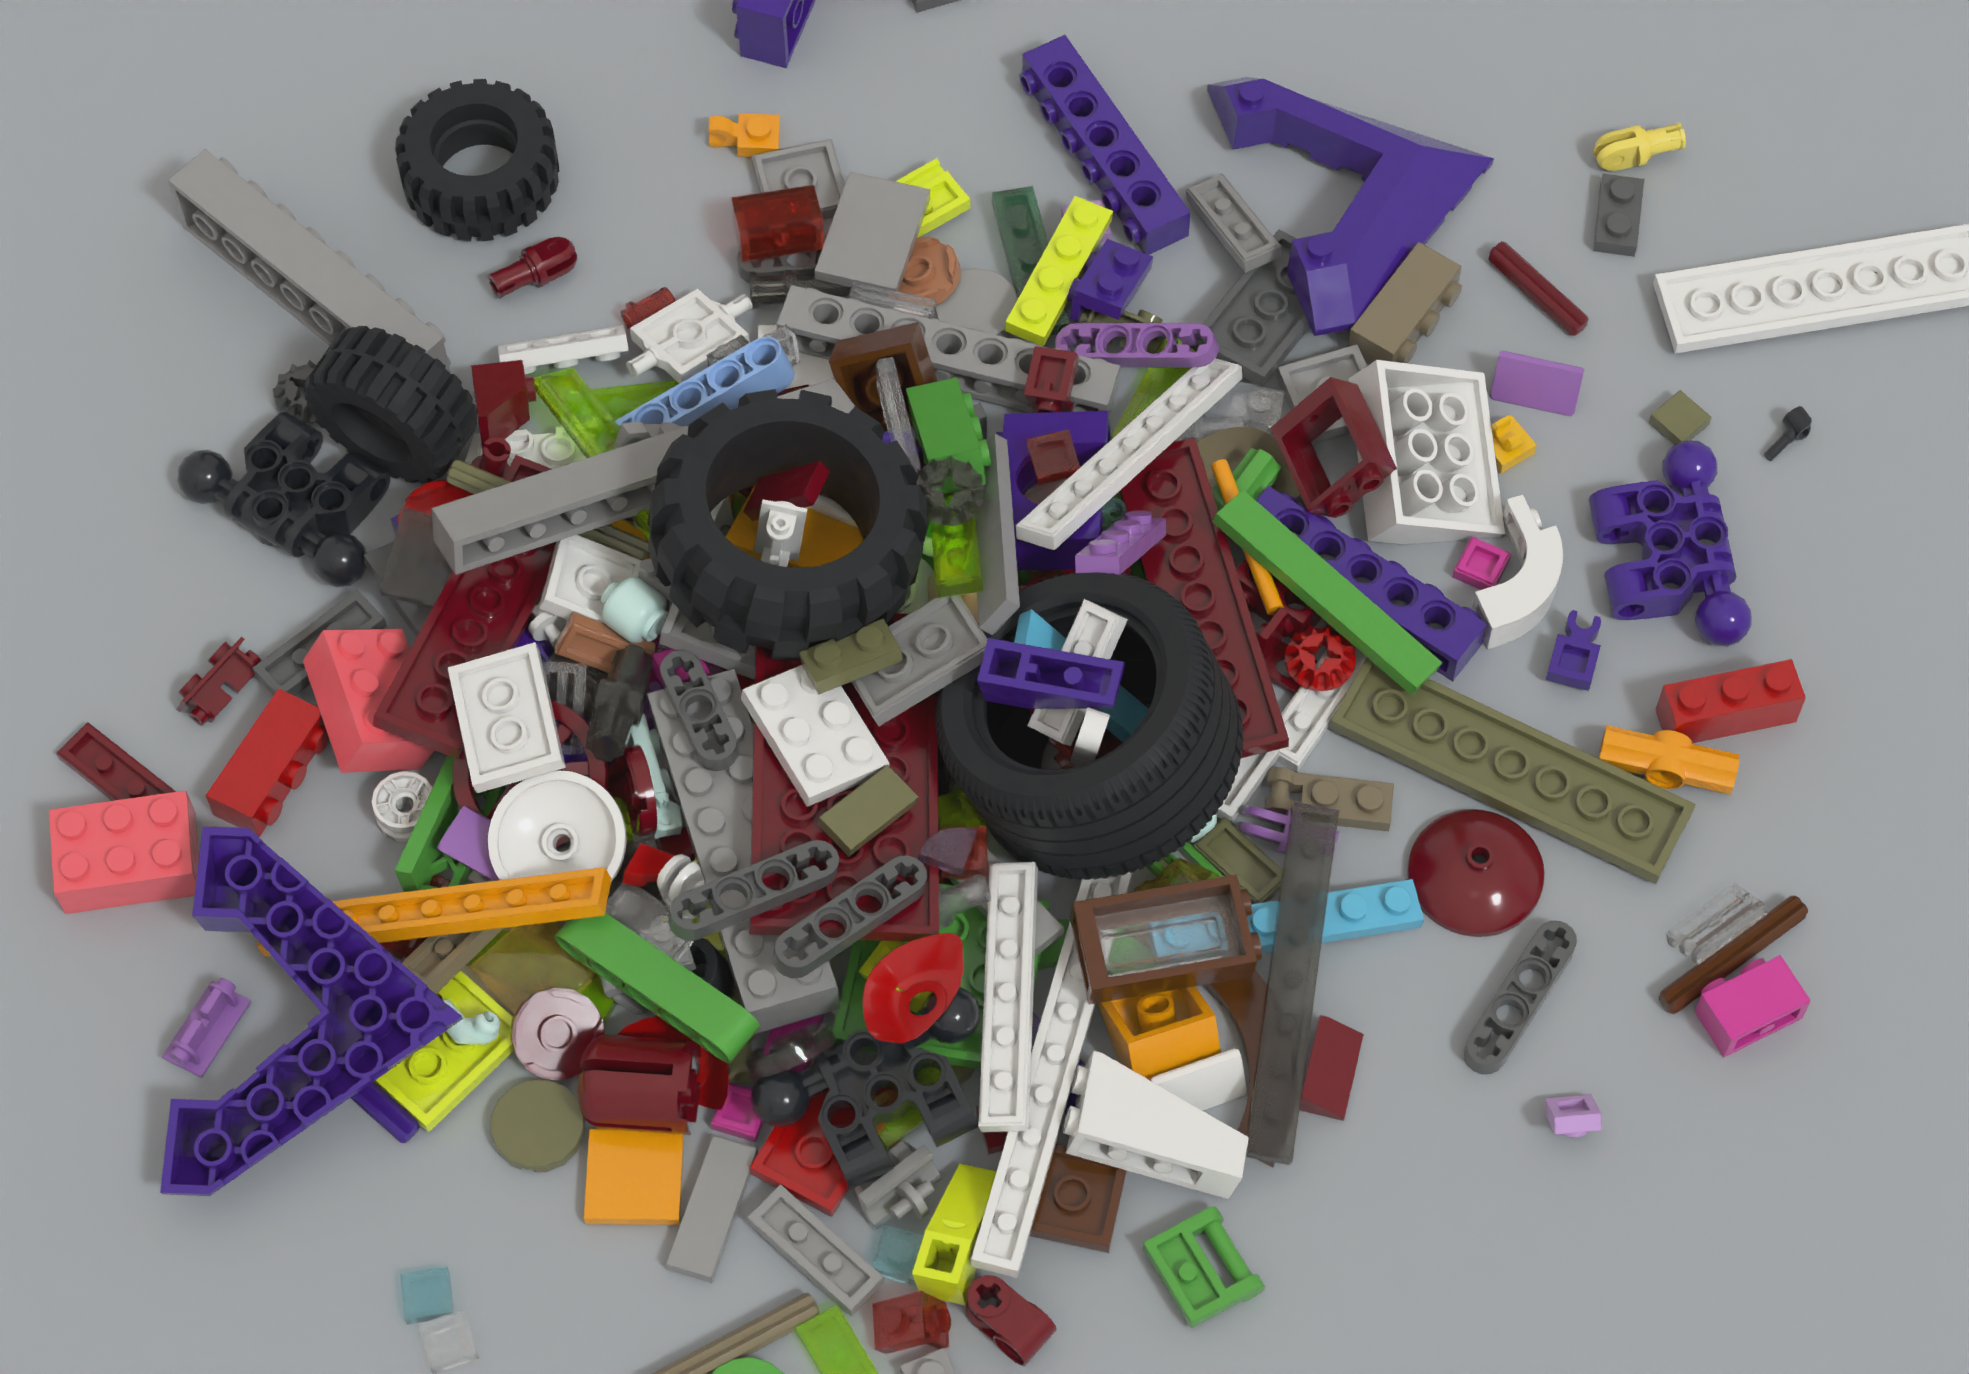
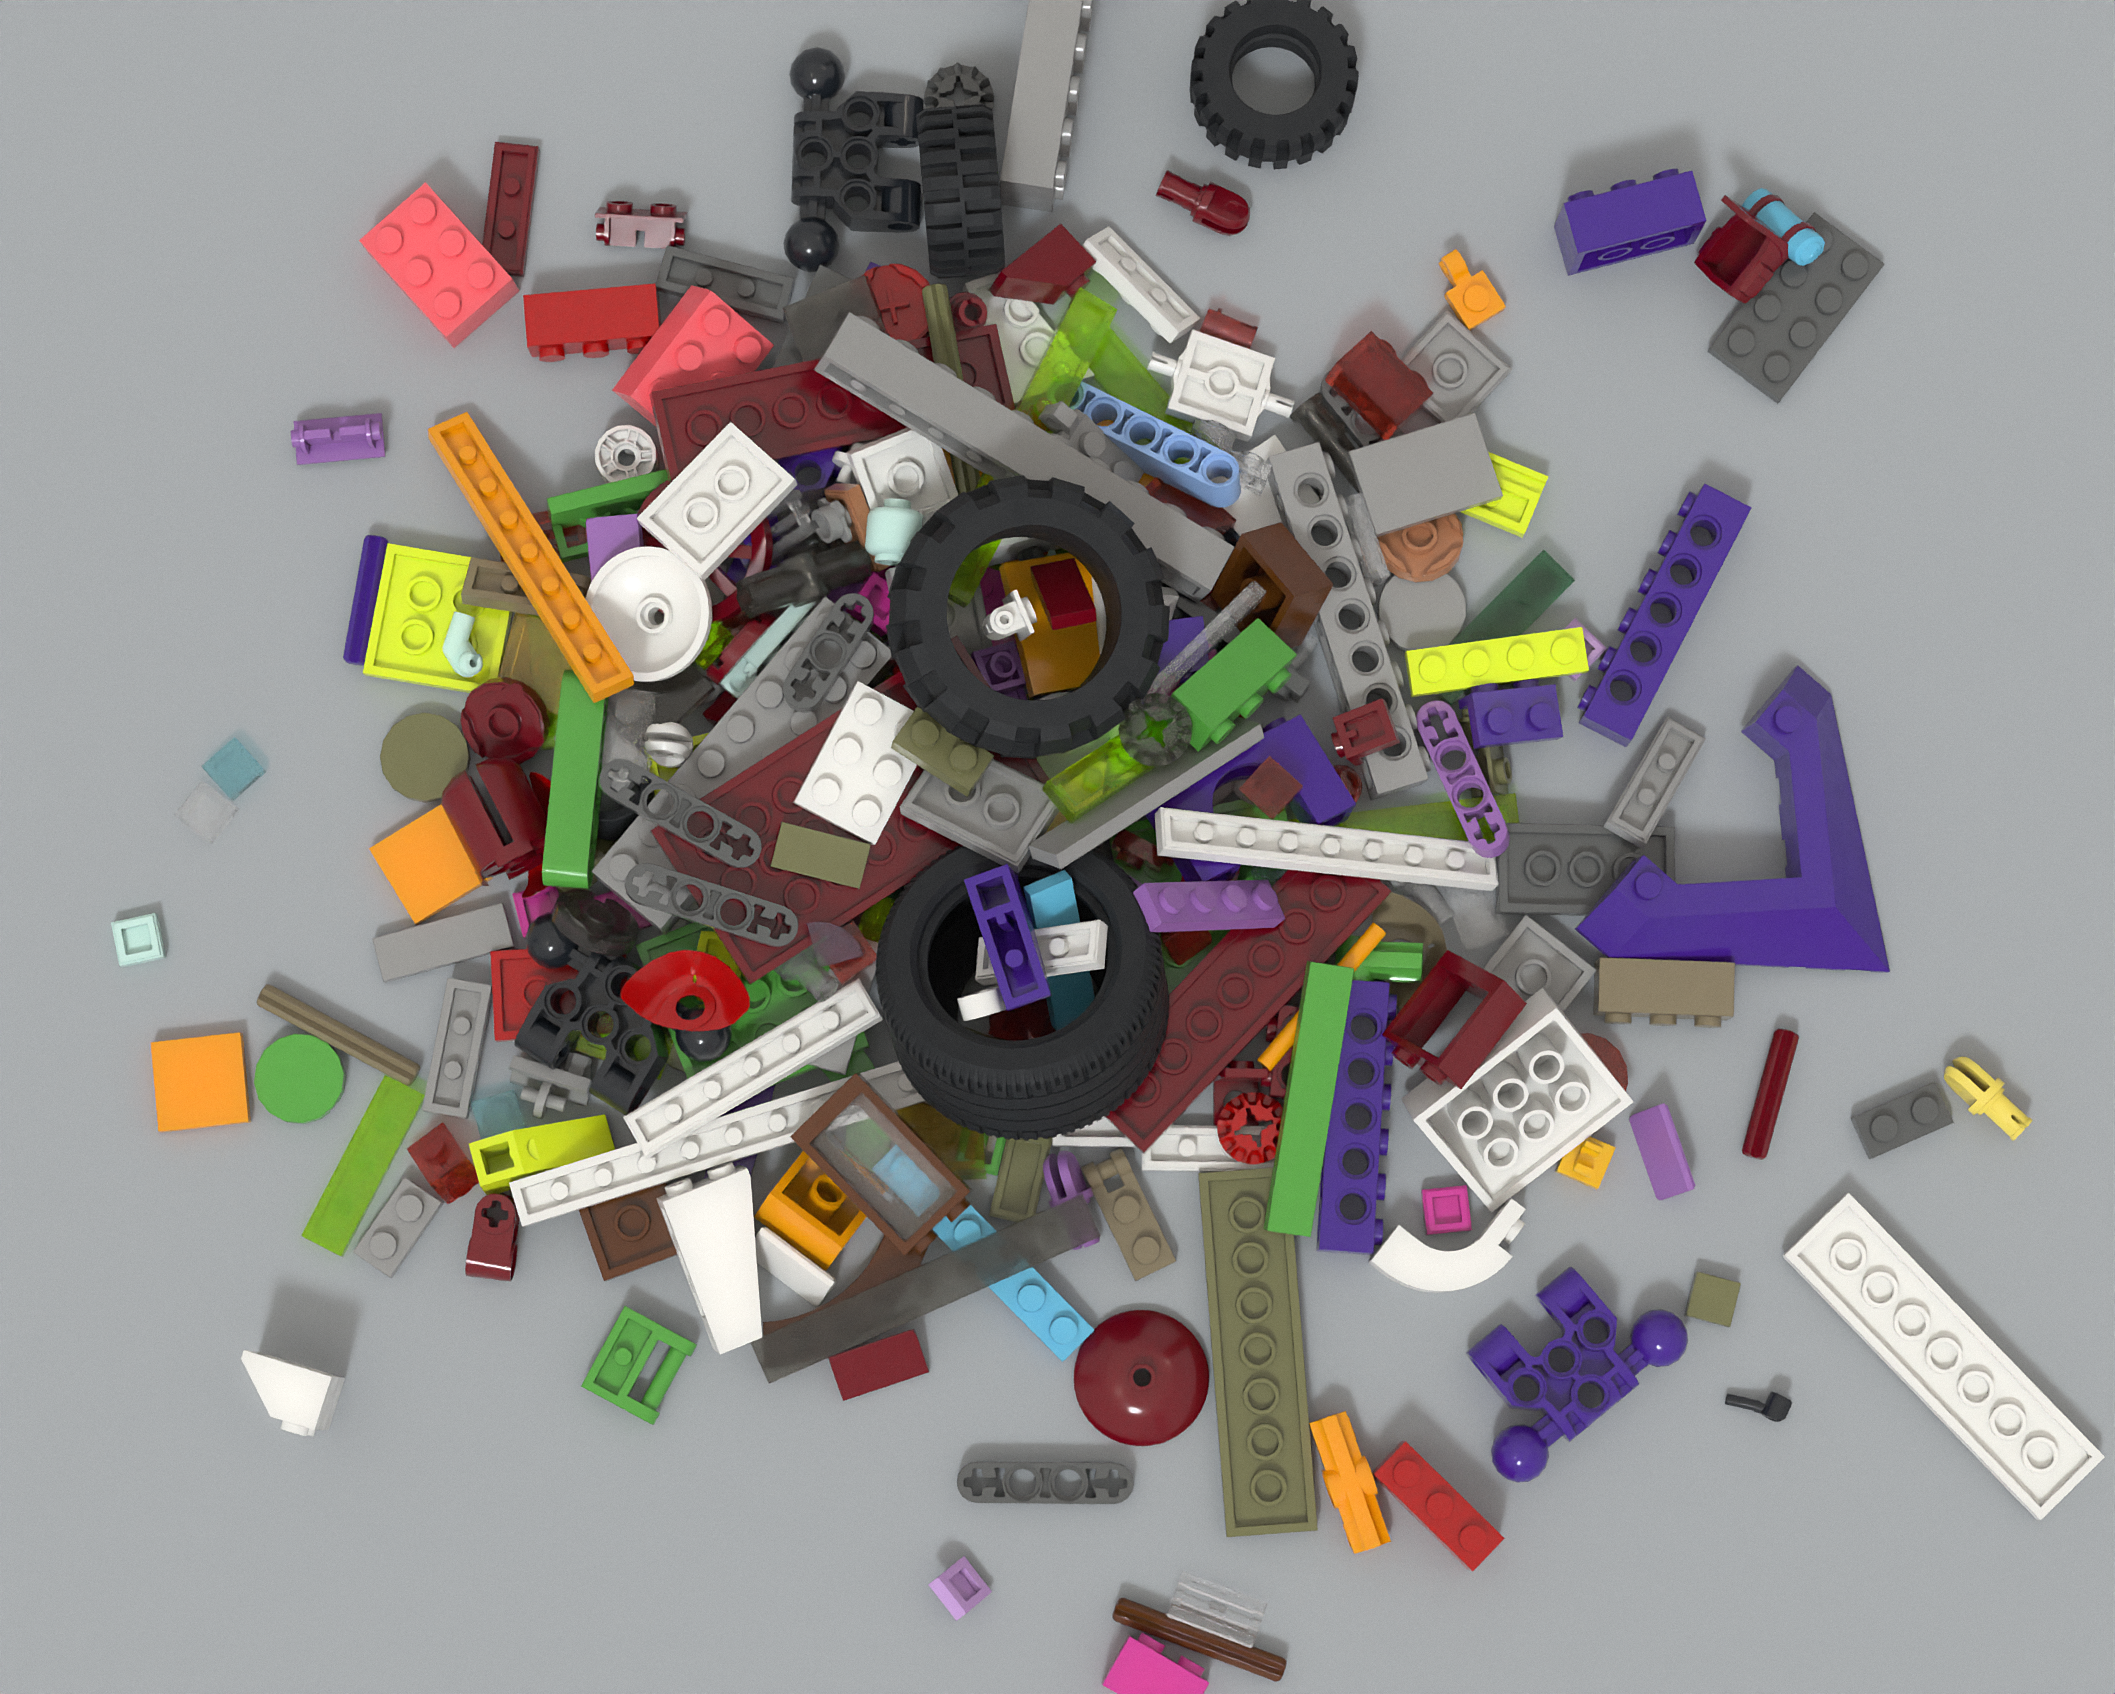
camera: 55 degrees right, 20 degrees up
(366, 1025) = (396, 574): dark purple wedge -> none
(597, 654) = (833, 521): none -> light grey plate
(645, 865) = (676, 704): red tile -> none
(1575, 655) = (1399, 1345): dark purple plate -> none

